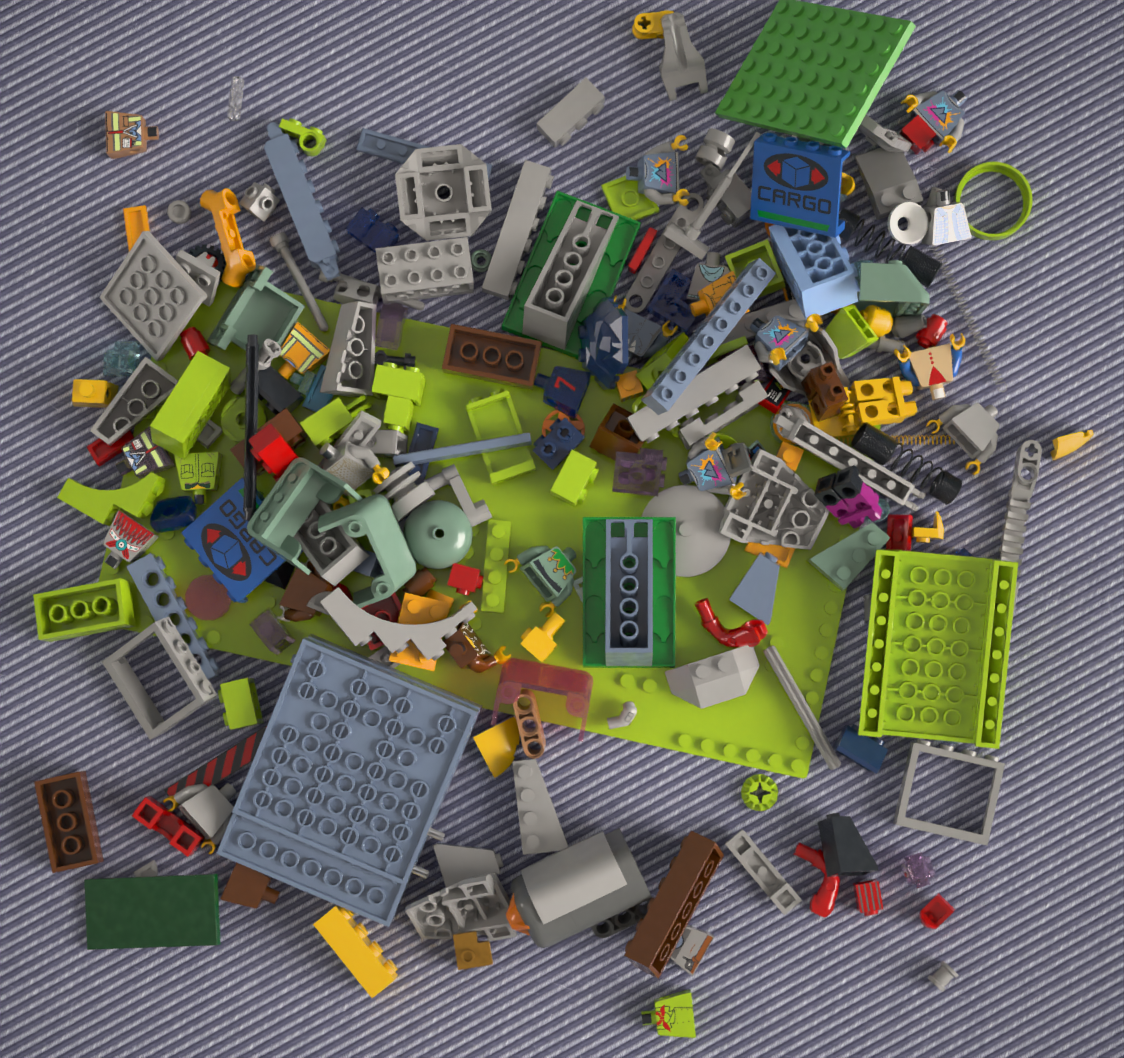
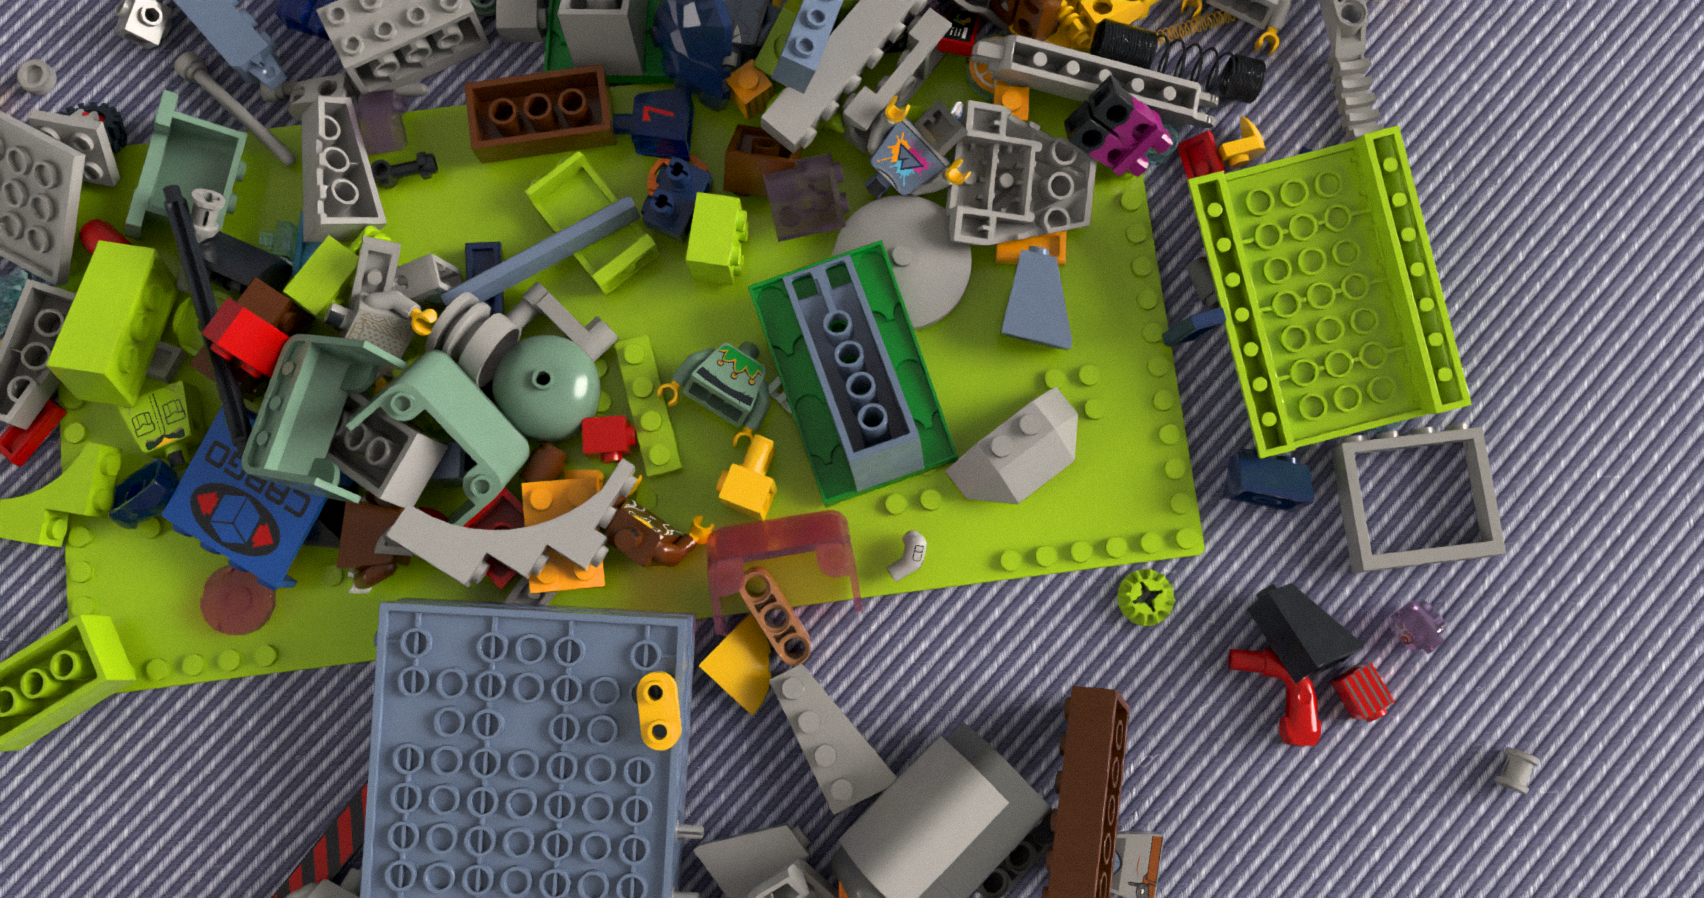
camera: 25 degrees left, 5 degrees down
(127, 540) = (86, 557): torso -> none
(136, 694) = (166, 778): light grey window -> none
(140, 572) = (122, 597): sand blue brick -> none
(144, 456) = (73, 423): torso -> none
(238, 261) = (132, 105): light orange plate -> none
(240, 703) = (329, 739): lime brick -> none
(271, 631) = (341, 614): torso -> none
(302, 352) = (263, 198): torso -> none
(398, 383) = (417, 195): lime brick -> none
(398, 413) = (430, 231): lime brick -> none
(443, 760) = (659, 711): none -> yellow plate
(747, 635) = (1048, 371): red piece -> none
(763, 872) = (1197, 712): light grey slope -> none
(802, 707) = (1162, 452): light grey axle -> none
(849, 556) = (1147, 215): sand green wedge -> none
(849, 639) = (1194, 327): none -> tile
(935, 912) = (1468, 679): red plate -> none

